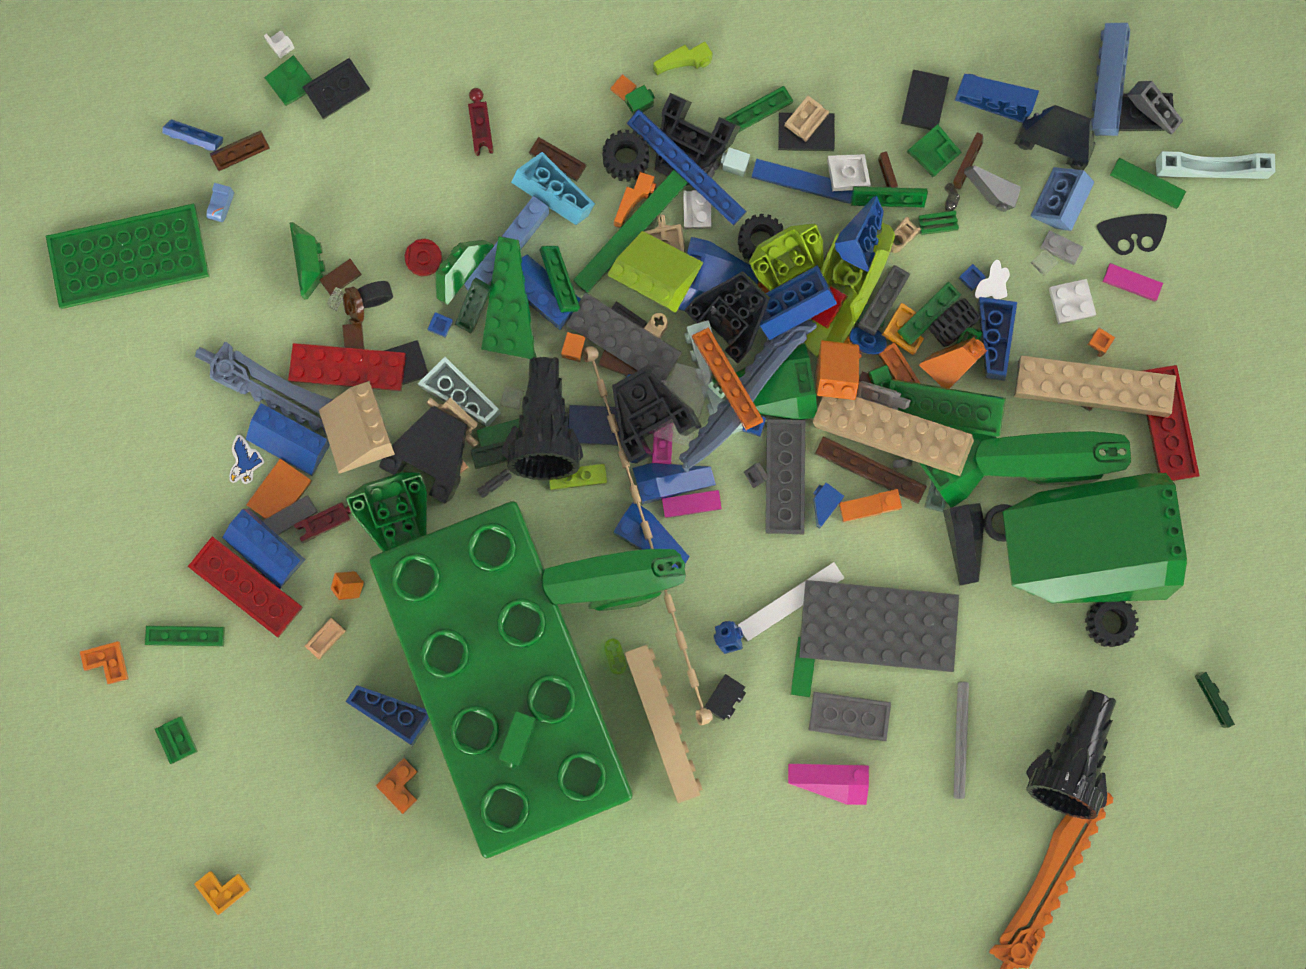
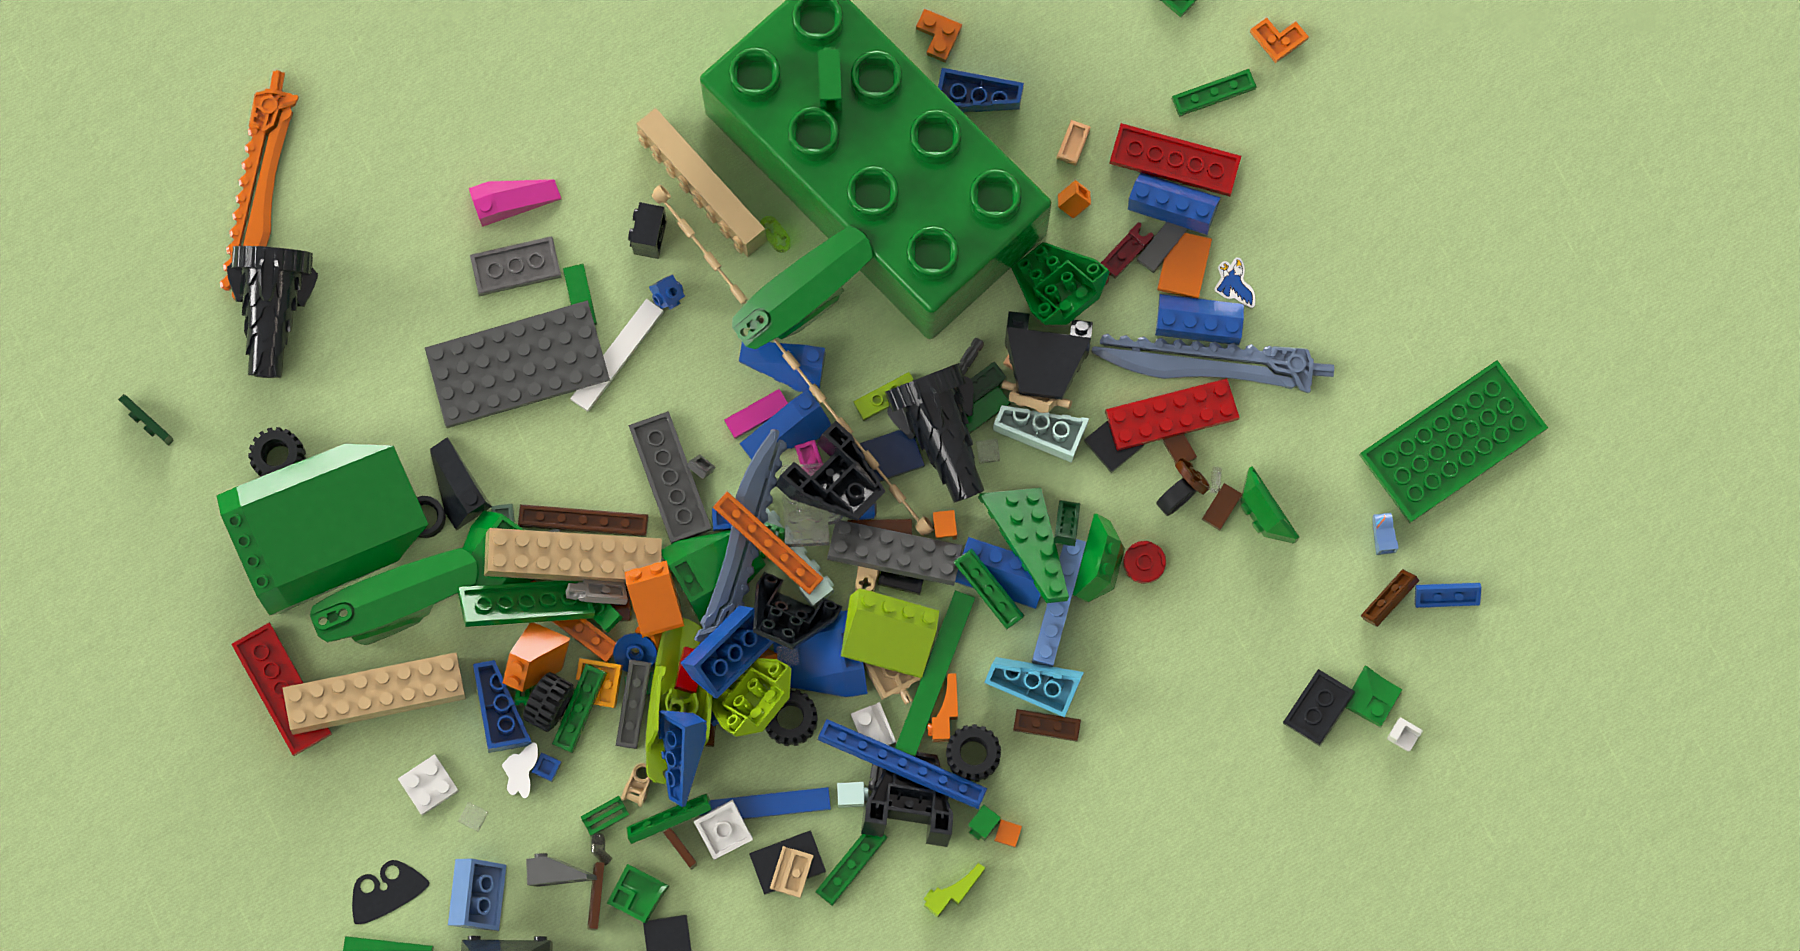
camera: 160 degrees right, 5 degrees down
(356, 428) = (1131, 348): tan slope -> none
(440, 325) = (1094, 495): blue plate -> none
(480, 122) = (1147, 731): dark red plate -> none
(825, 502) = (617, 466): blue slope -> none
(870, 505) = (569, 481): orange slope -> none
(961, 740) = (394, 285): light grey axle -> none
(1061, 247) = (460, 841): light grey plate -> none
(1101, 341) = (383, 746): orange panel -> none
(1132, 282) = (369, 831): dark pink tile -> none

